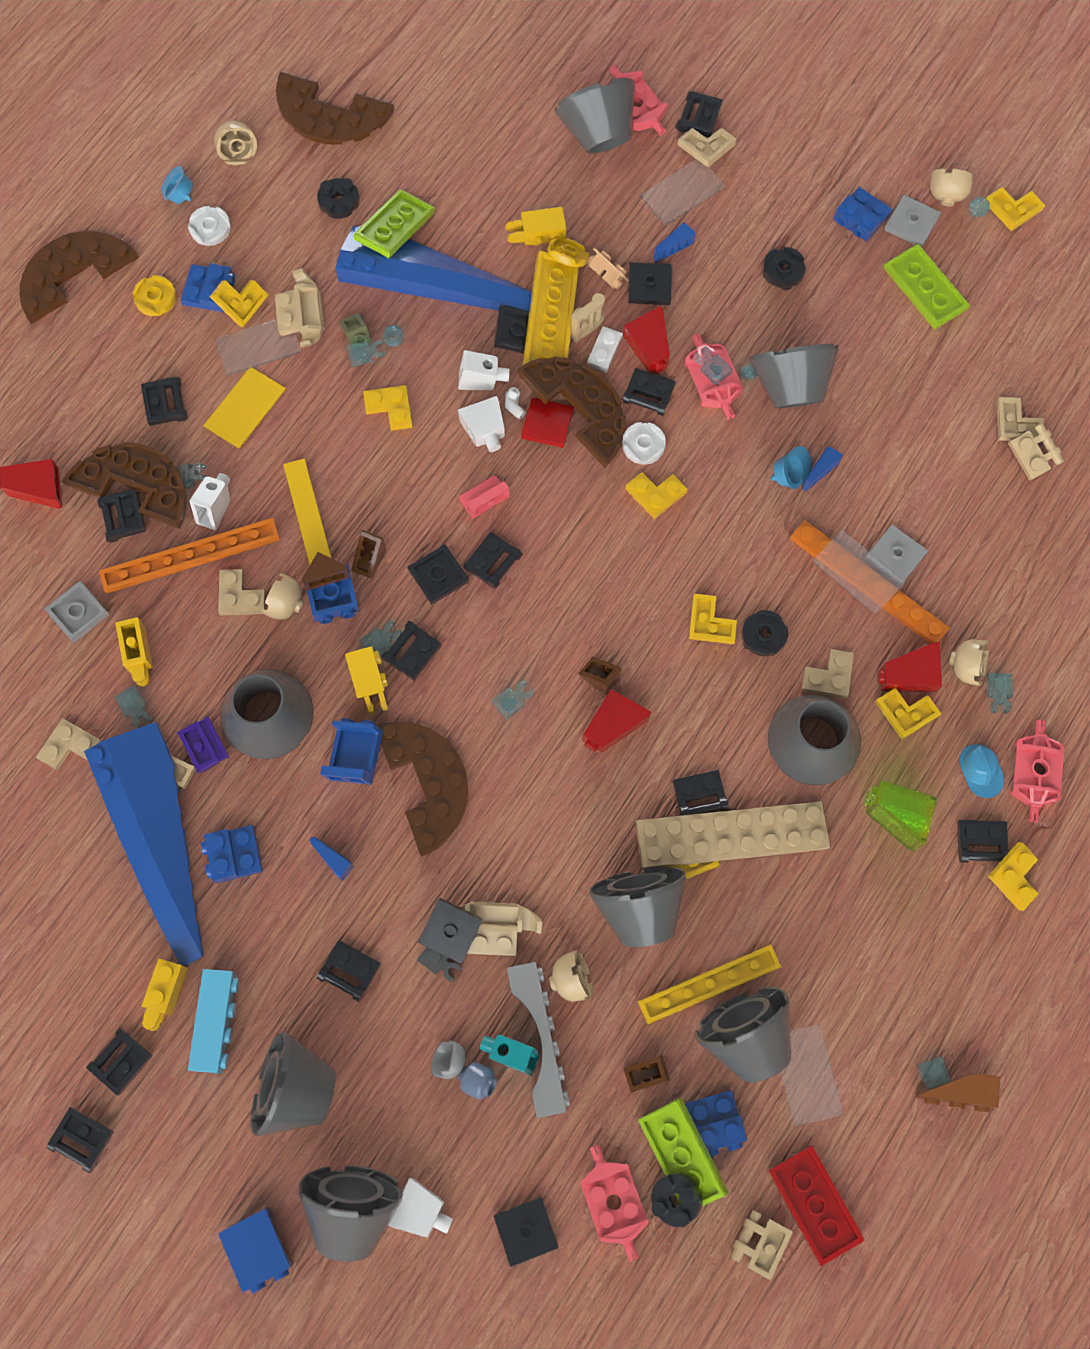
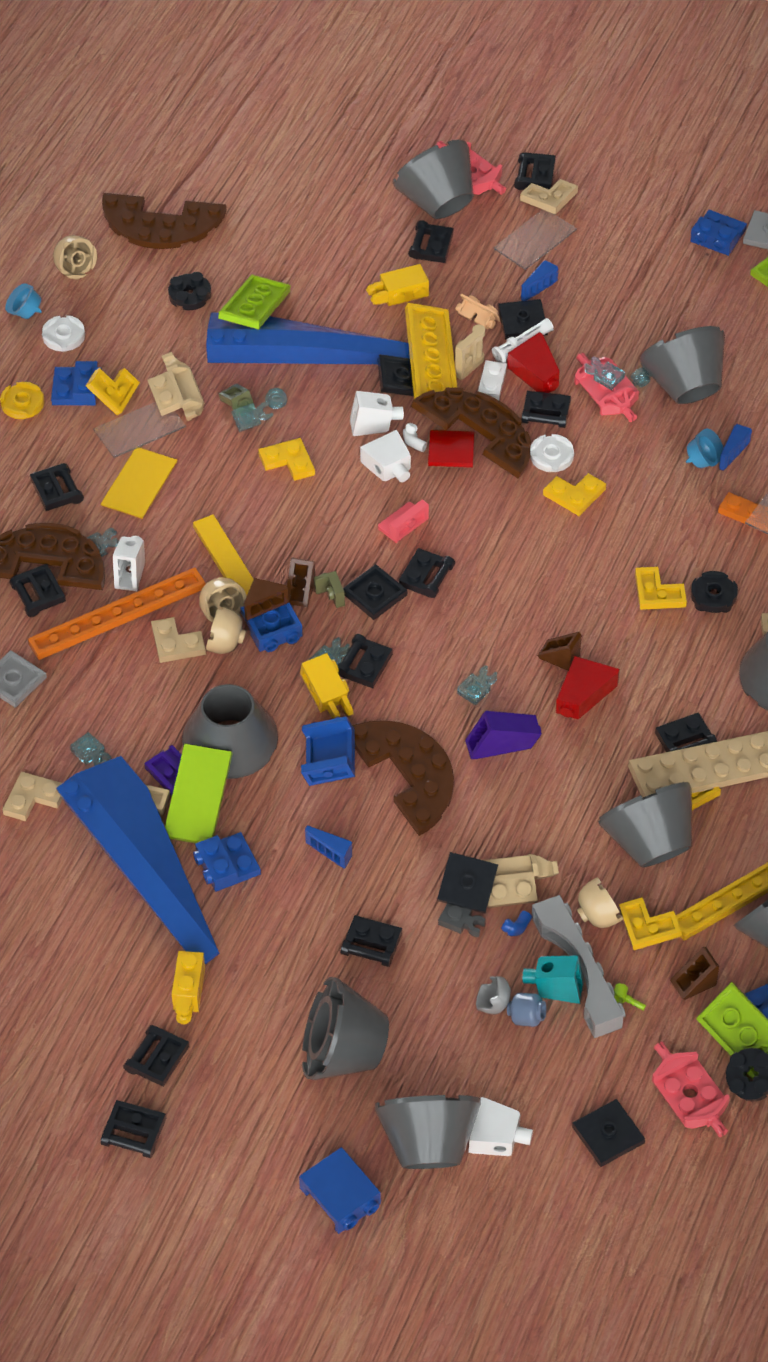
camera: 10 degrees left, 20 degrees down
(135, 649) = (83, 698): yellow hinge -> none
(213, 1021) = (245, 1001): medium azure brick -> none
(218, 779) = (198, 793): none -> lime tile
(288, 558) = (221, 592): none -> tan cylinder
(398, 560) = (331, 584): none -> olive bracket
(485, 985) = (518, 927): none -> blue arm
(524, 763) = (502, 734): none -> dark purple slope
(568, 252) = (435, 301): yellow tile -> none
(571, 1076) = (621, 996): none -> lime hand
(587, 182) = (438, 242): none -> black plate
(611, 1011) = (648, 930): none -> yellow plate
(634, 312) = (501, 353): none -> white pin
(779, 277) = (655, 296): black plate -> none

